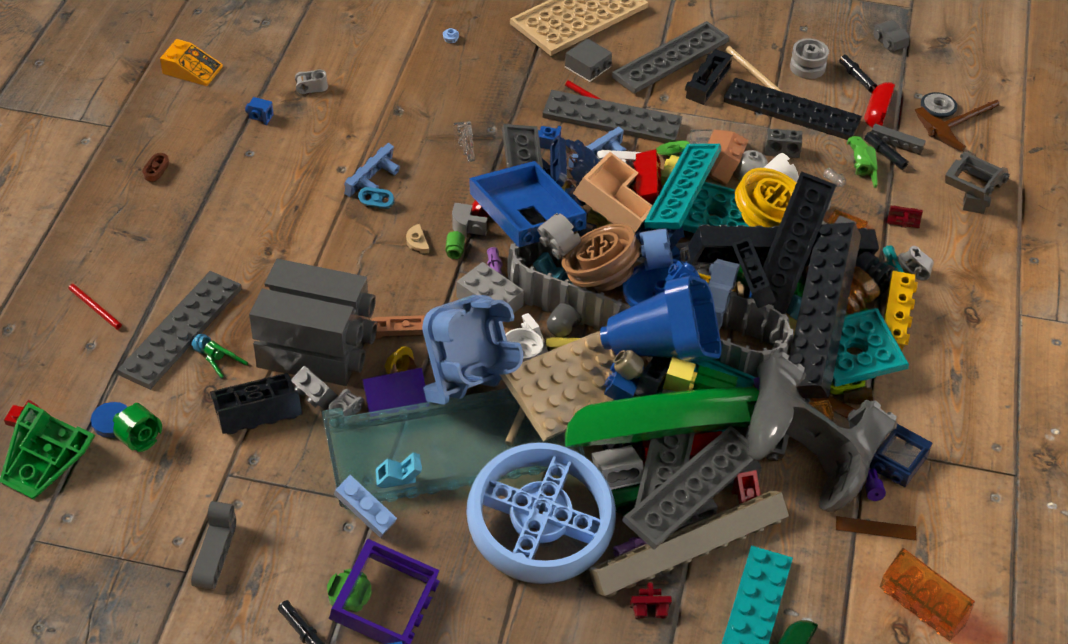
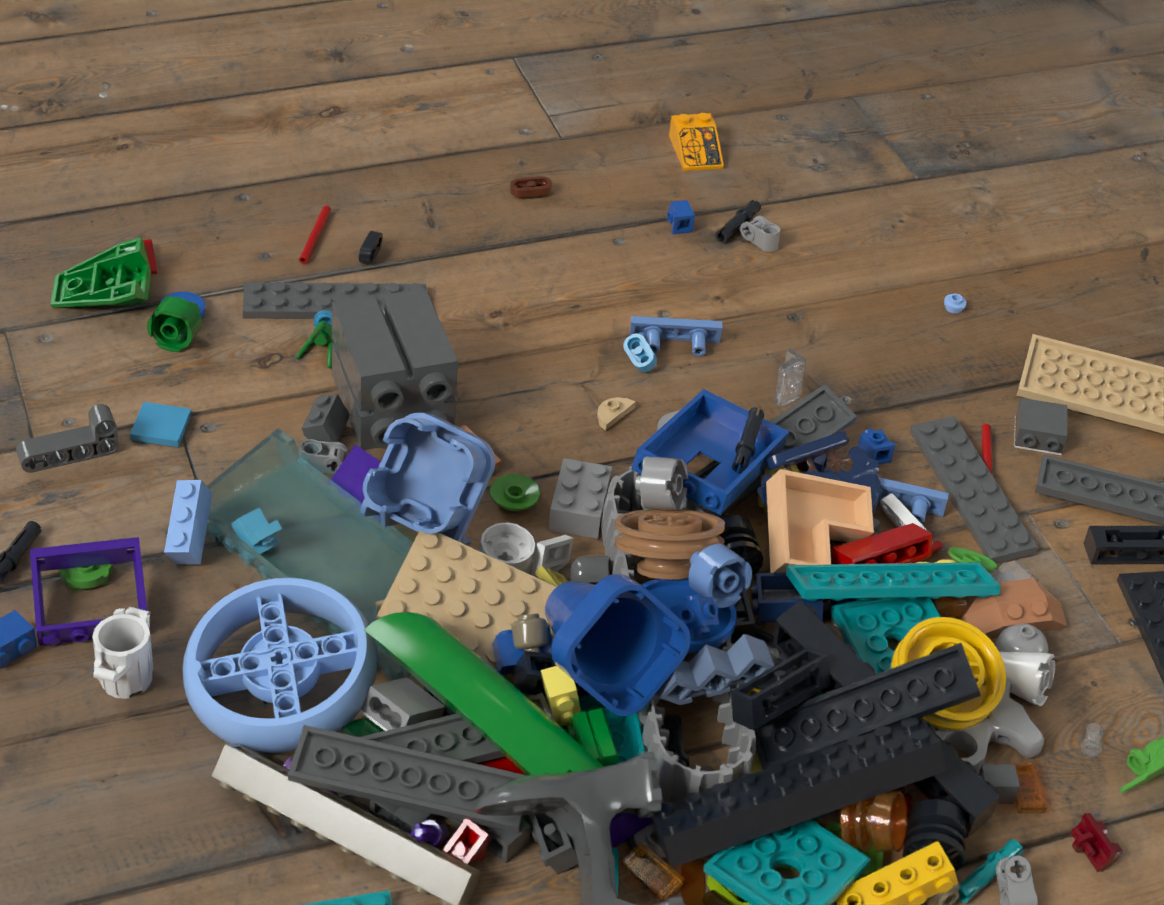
camera: 55 degrees right, 5 degrees down
(143, 281) = (370, 247): none -> black beam
(231, 484) = (160, 424): none -> dark azure tile
(256, 403) = (271, 390): black piece -> none
(286, 82) = (733, 225): none -> black pin
(455, 244) = (629, 441): bright green brick -> none
(471, 594) = (123, 652): none -> white container
(538, 187) = (745, 448): none -> black pin
(641, 603) = (237, 835): dark red hips -> none
(725, 501) = (431, 832): none -> dark purple piece
(784, 142) = (1095, 661): dark grey brick -> none

